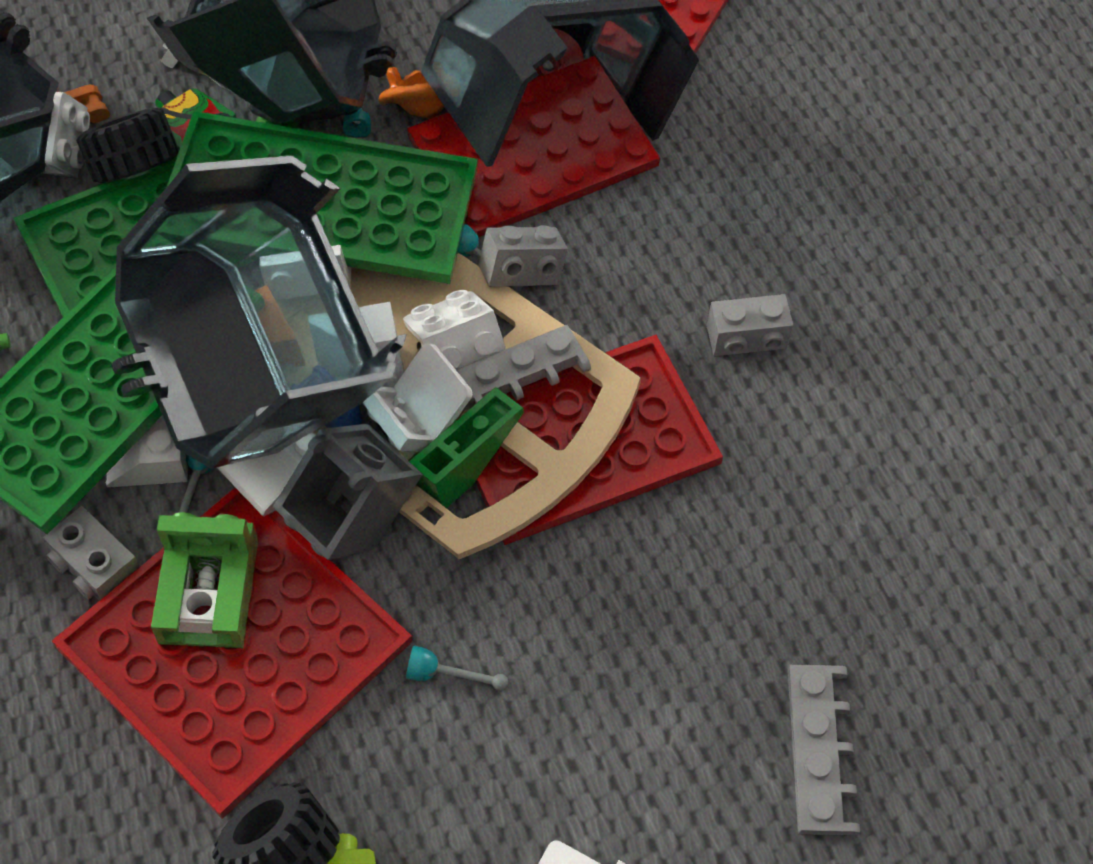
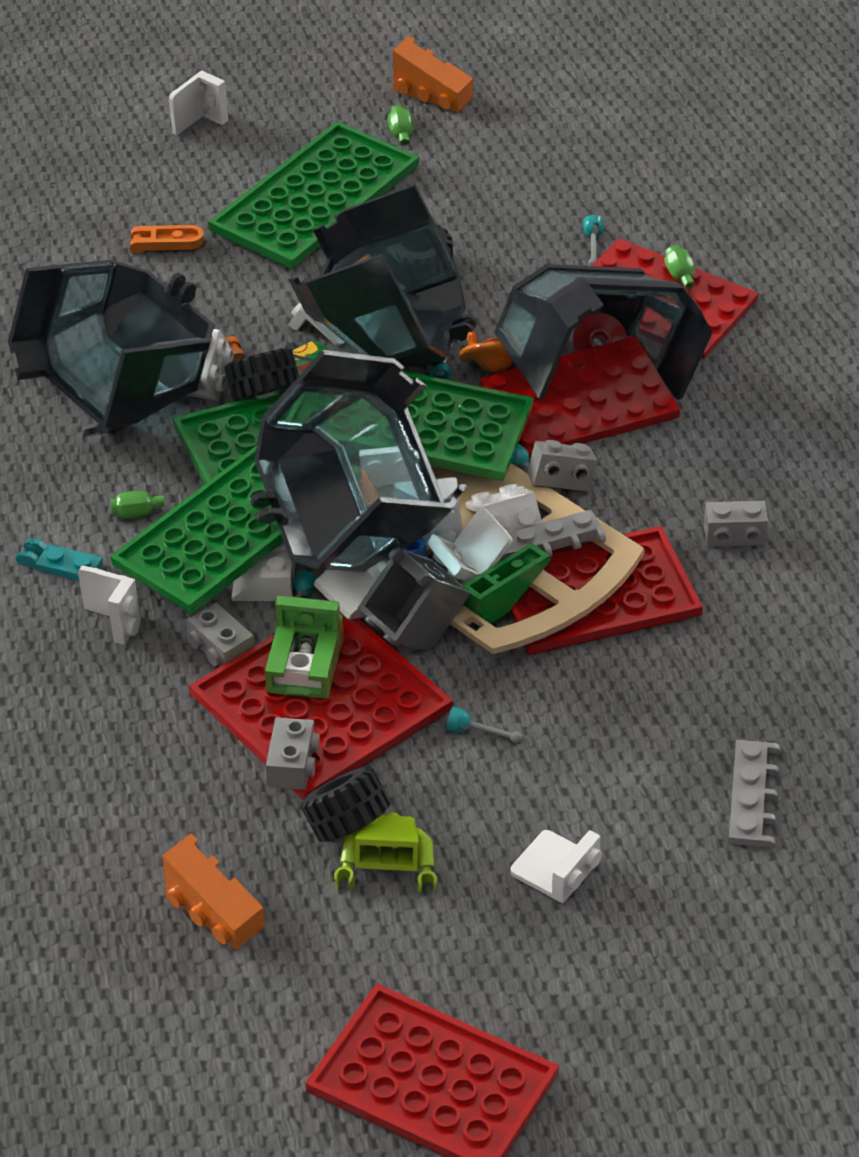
camera: 10 degrees right, 15 degrees down
(195, 756) = (291, 753): none -> light grey brick

